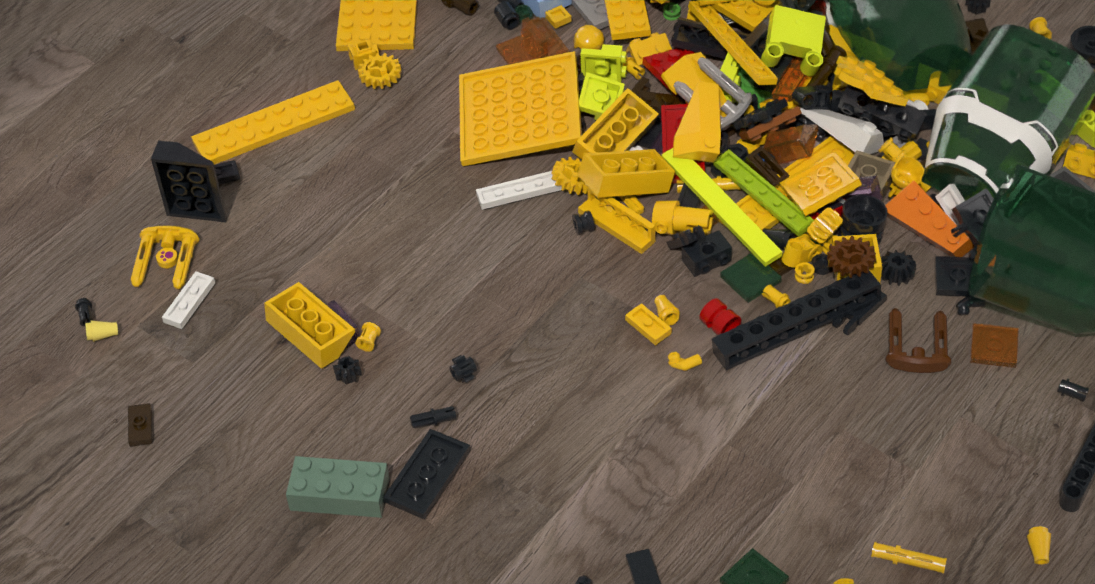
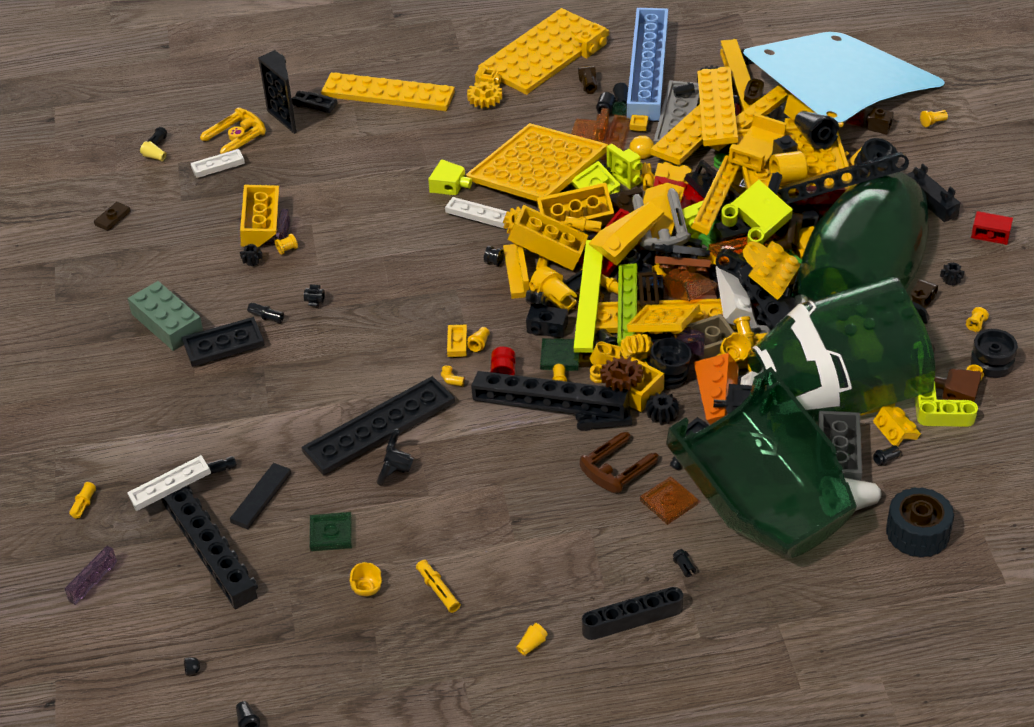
camera: 40 degrees right, 5 degrees down
(448, 174) = (448, 179): none -> neon yellow torso
(643, 140) = (583, 224): none -> yellow pin
(676, 452) = (377, 425): none -> black plate
(737, 472) = (394, 459): none -> black piece

